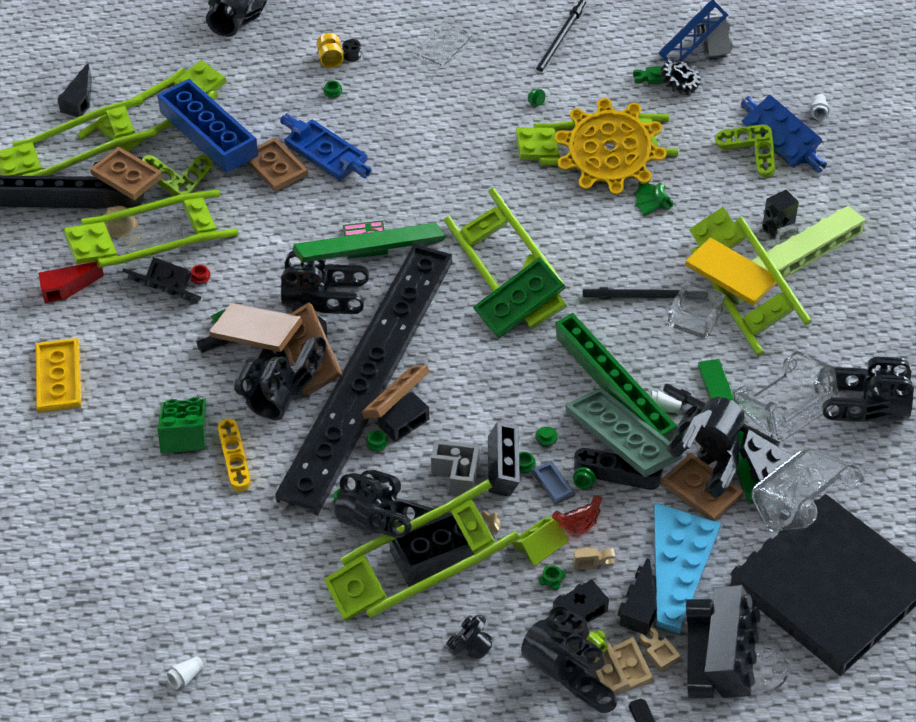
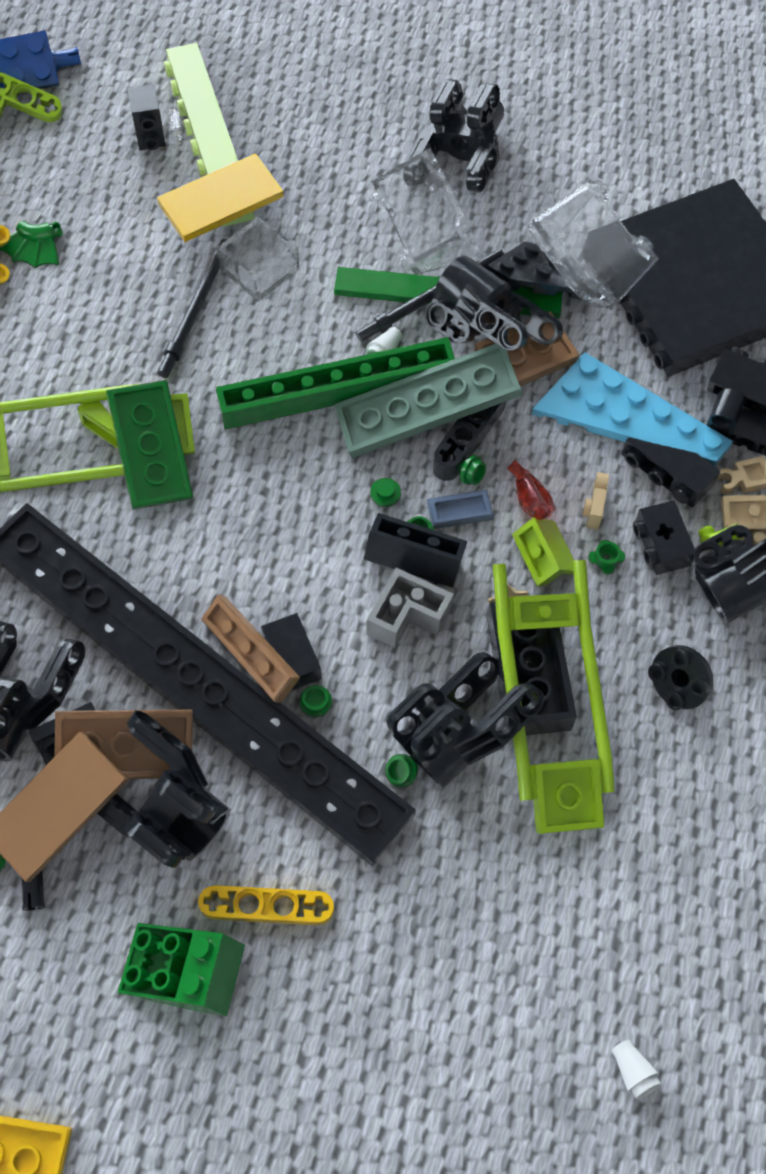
camera: 75 degrees left, 15 degrees up
(730, 234) = (143, 182): lime plate -> none

